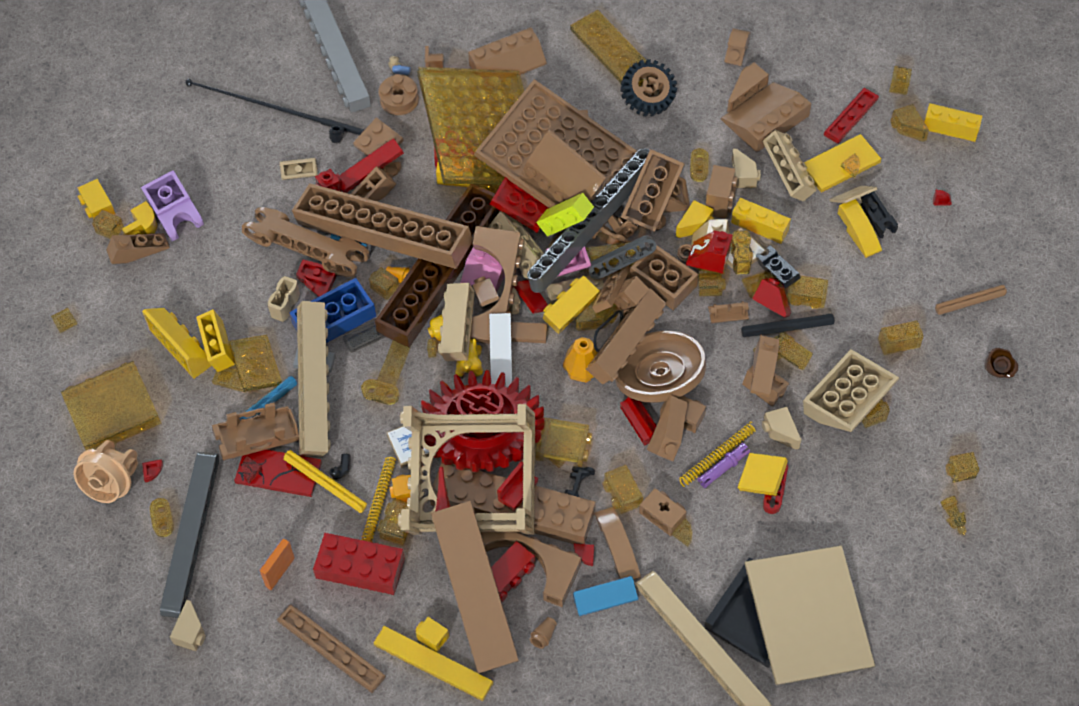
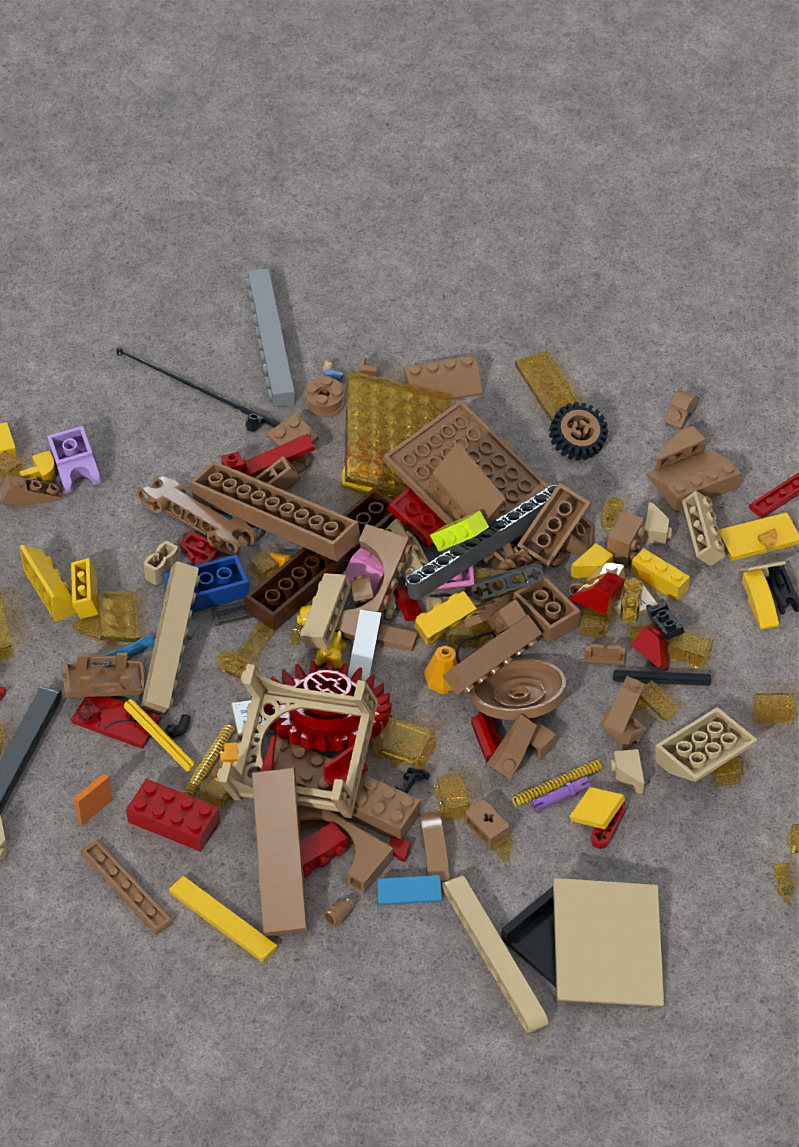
camera: 10 degrees right, 10 degrees down
(298, 168) = (207, 448): tan slope -> none
(431, 634) = (228, 891): yellow brick -> none

